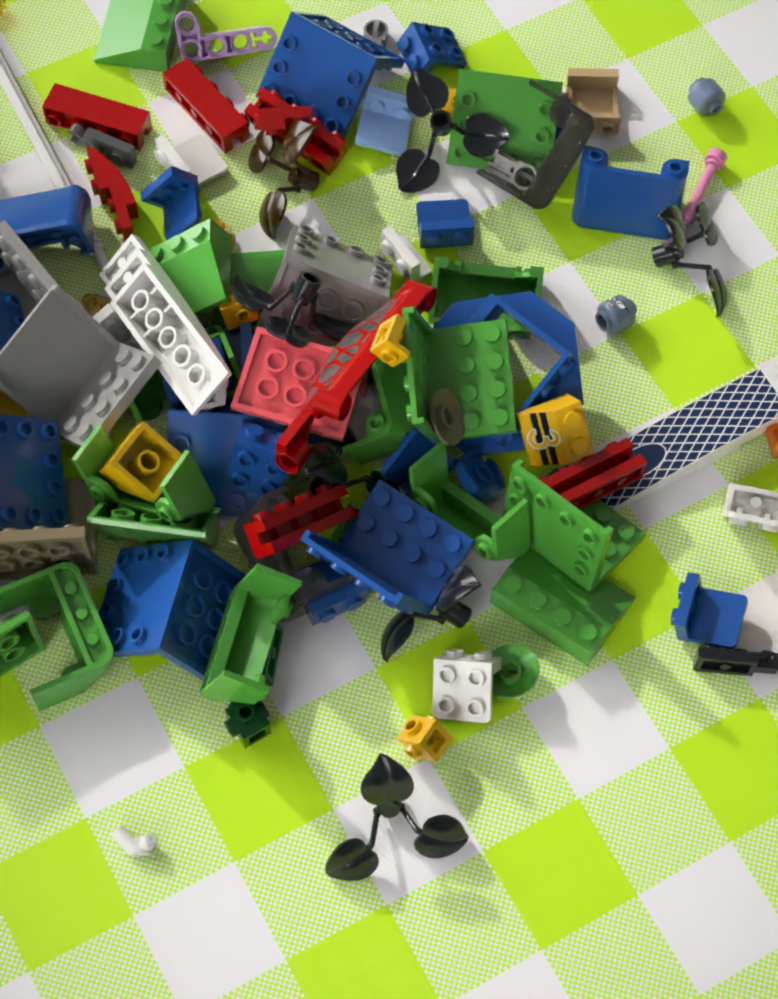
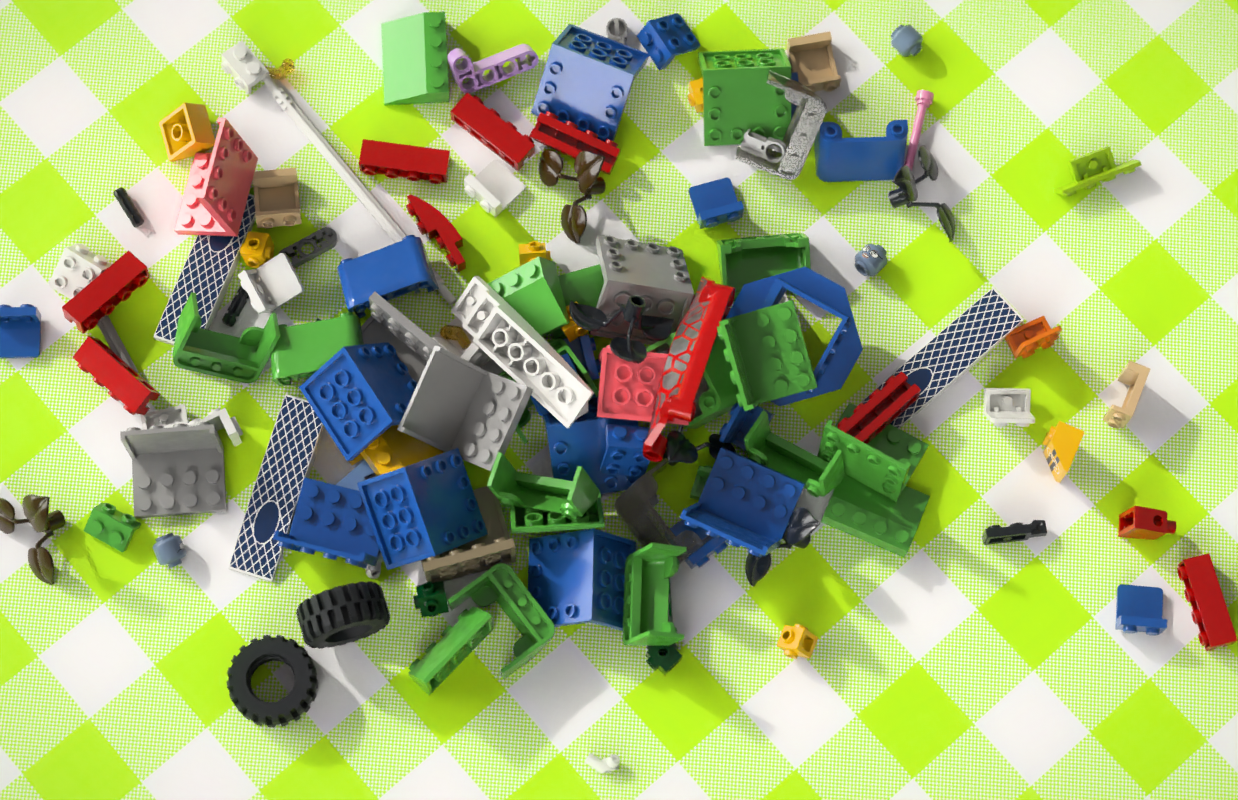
camera: 15 degrees left, 10 degrees up
(112, 148) = (432, 191): dark grey plate -> none
(141, 463) = (537, 473): yellow slope -> none
(178, 197) = (496, 231): blue bracket -> none
(279, 118) = (563, 143): red plate -> none
(288, 523) = (669, 497): red brick -> none
(384, 121) = (647, 119): light blue bracket -> none
(386, 787) = (780, 691): black plant -> none
(388, 339) = (713, 349): yellow bracket -> none
(403, 255) = (691, 241): white bracket -> none
(430, 94) = (732, 123): black plant -> none
(446, 416) = (763, 390): dark tan dish -> none
(464, 685) = (817, 594): white bracket -> none
(480, 477) = (793, 423): blue tile -> none
(519, 661) = (842, 568): bright green dish -> none
(555, 432) = (846, 380): yellow slope -> none
(708, 614) = (988, 500): blue bracket -> none

